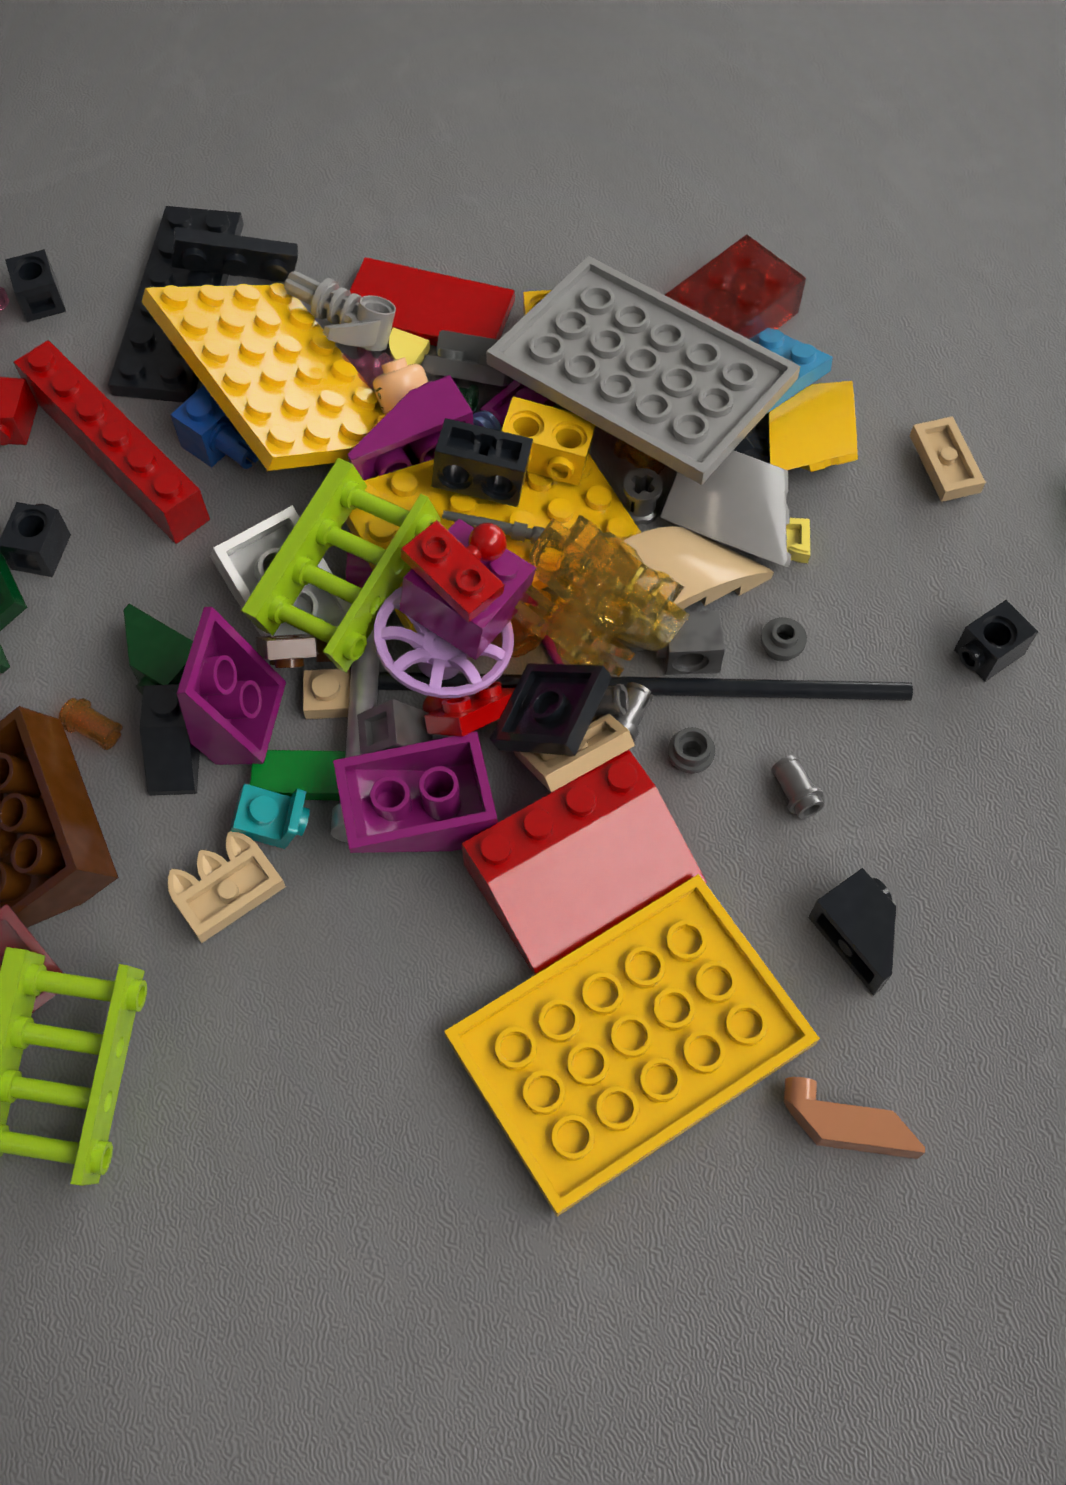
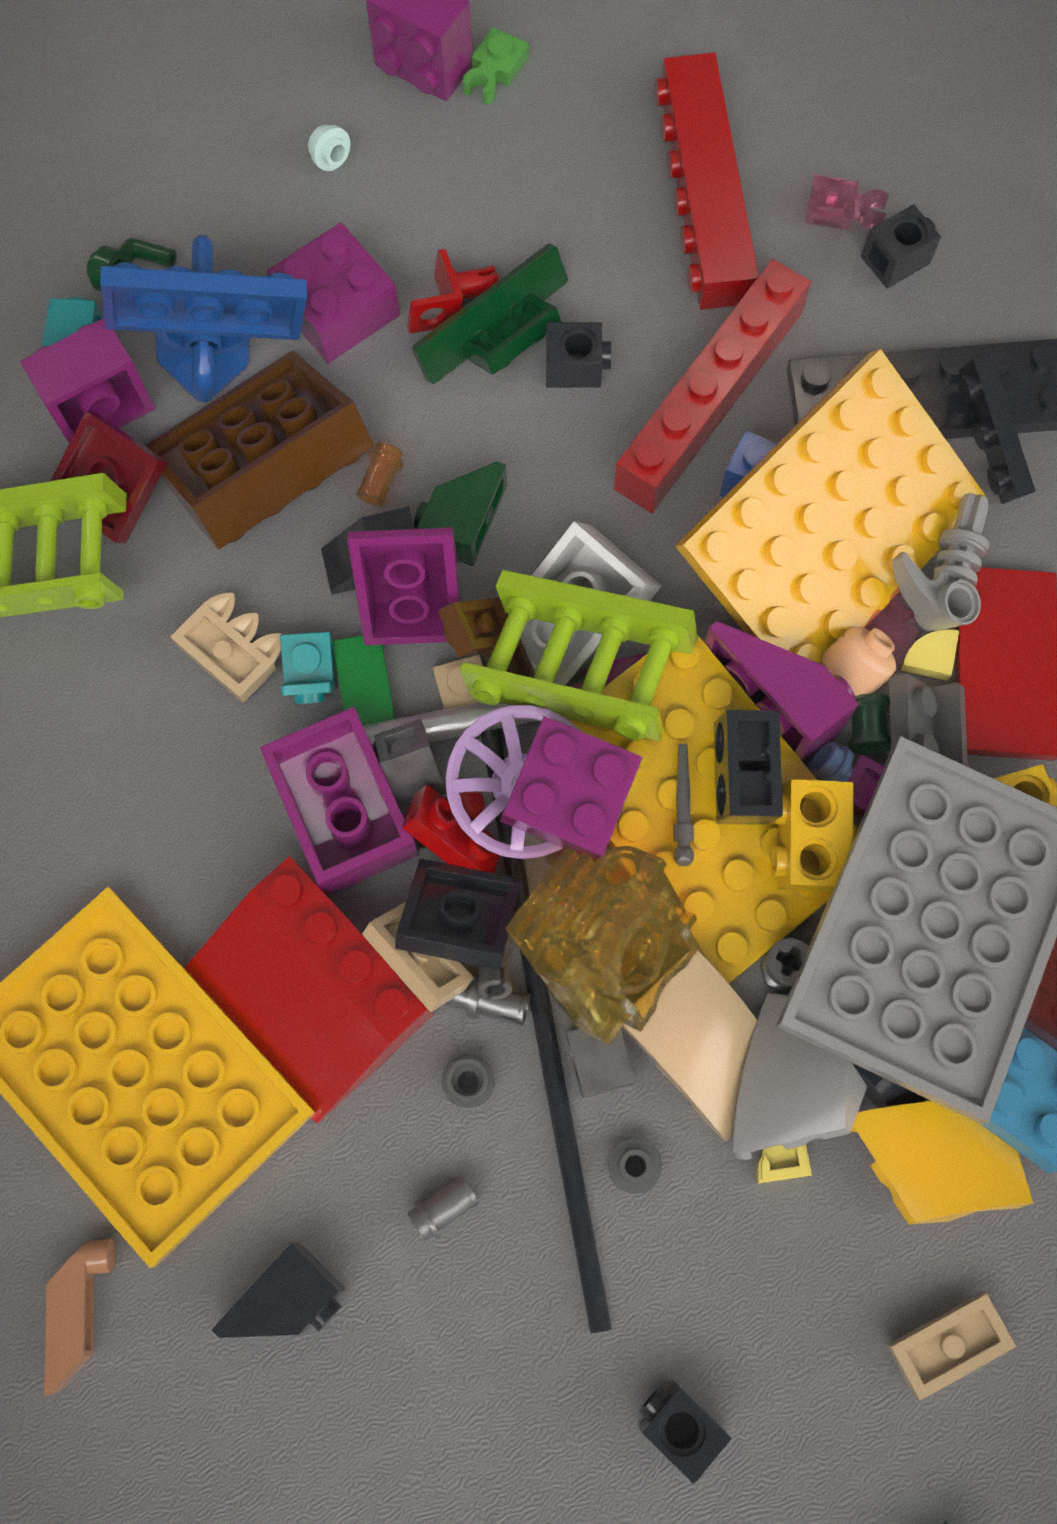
camera: 80 degrees right, 10 degrees up
(456, 569) = (557, 764): red plate -> none

